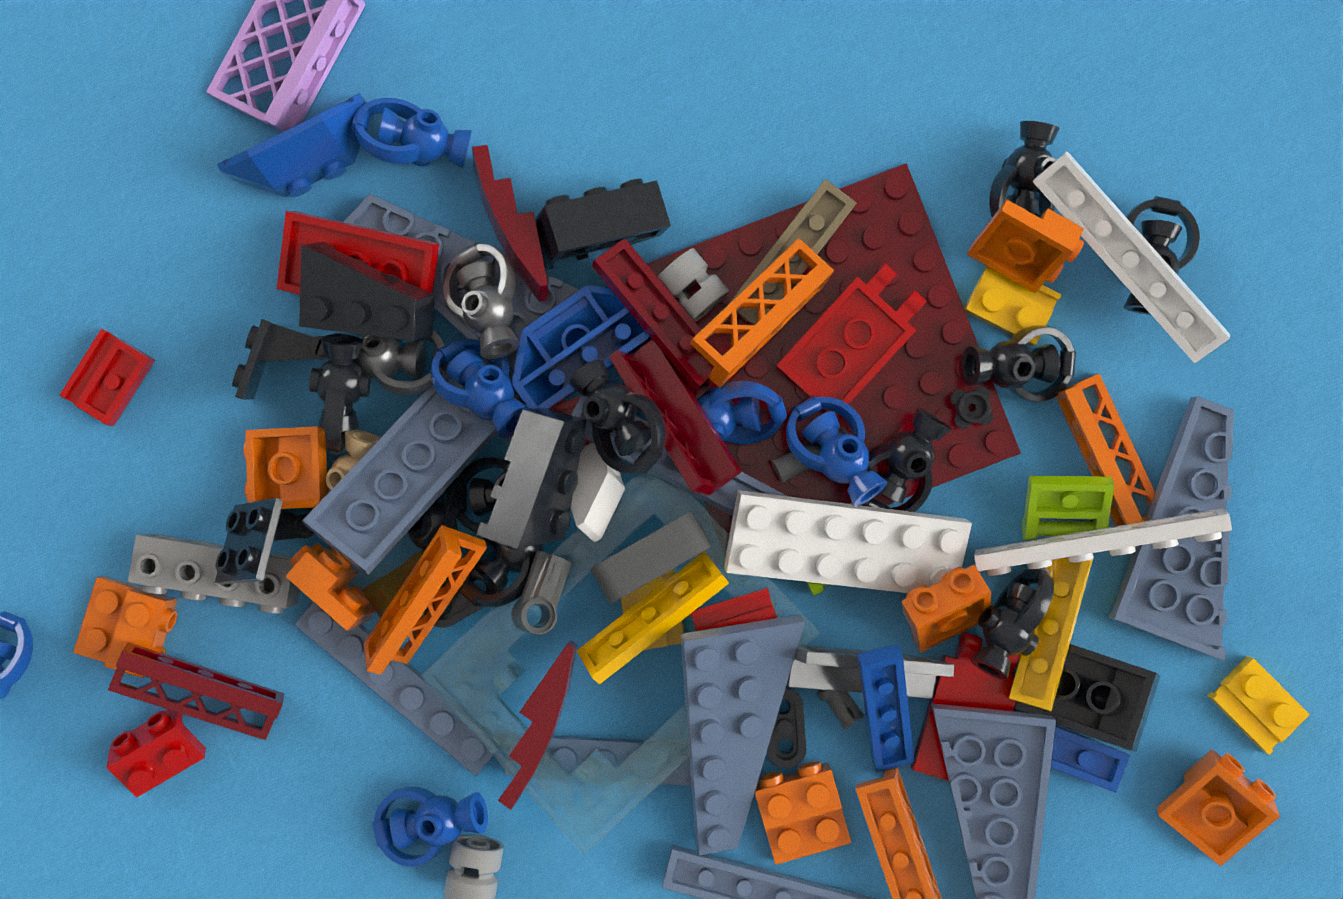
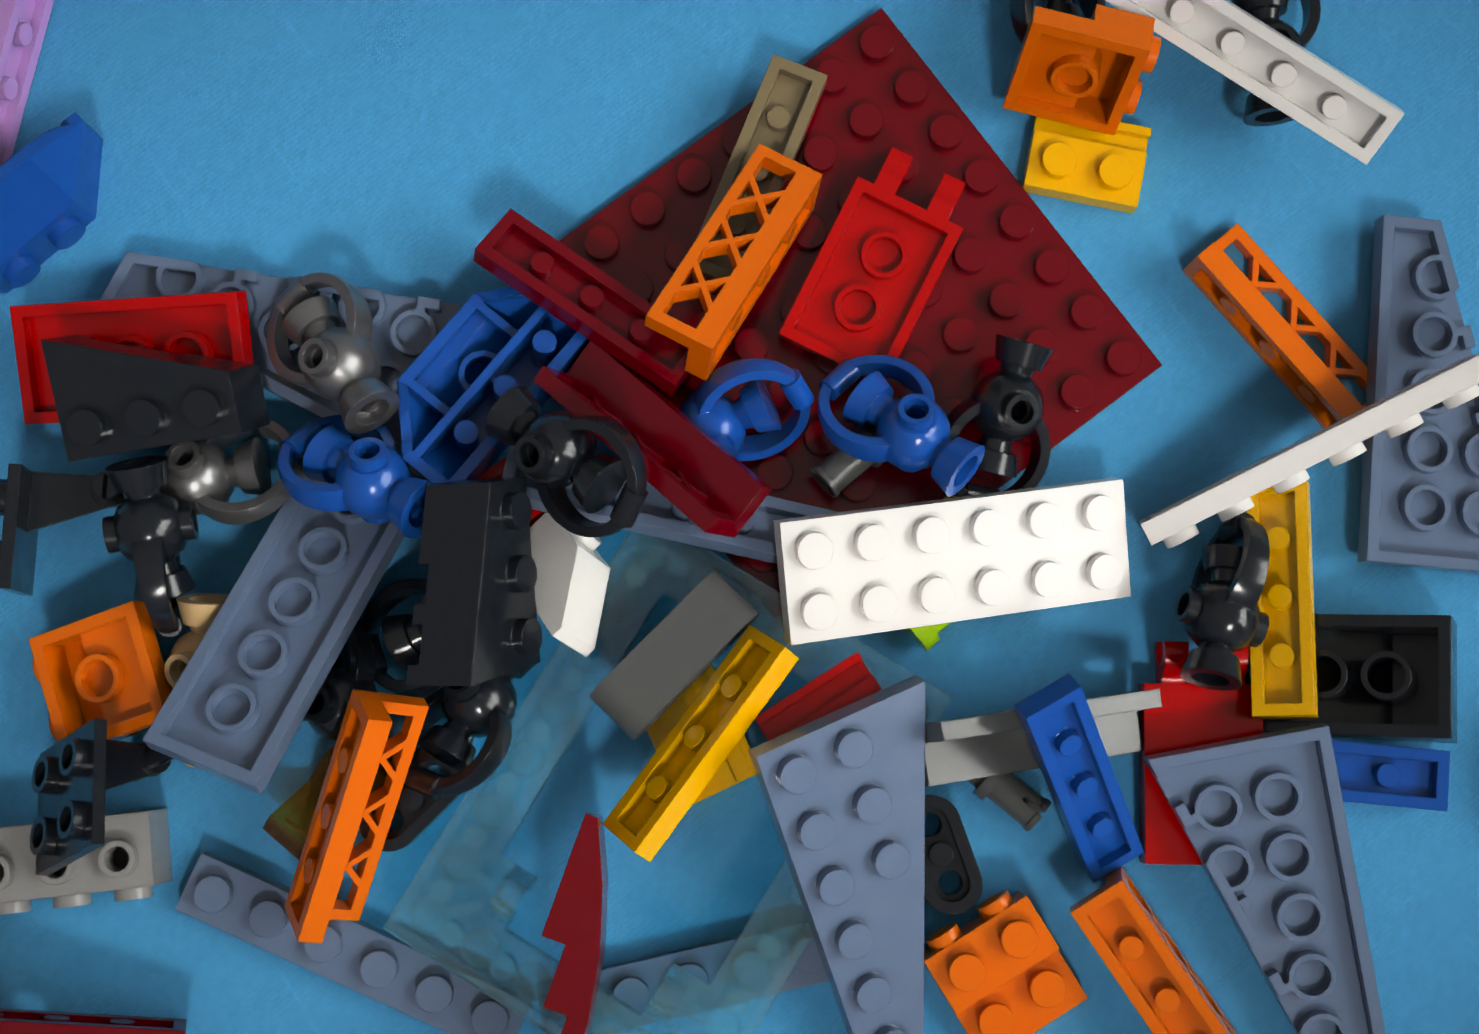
camera: 30 degrees left, 5 degrees down
(325, 578) = (206, 826): orange plate -> none
(421, 135) = (181, 150): blue piece -> none
(514, 231) = (348, 244): dark red slope -> none
(544, 589) = (528, 746): dark grey piece -> none
(600, 220) = (463, 197): black wedge -> none
(684, 274) = (611, 238): light grey wheel -> none
(946, 607) = (1122, 609): orange plate -> none
(982, 412) = (1082, 302): black plate -> none
(1013, 364) = (1114, 239): black piece -> none
(1066, 499) = (1246, 407): lime plate -> none

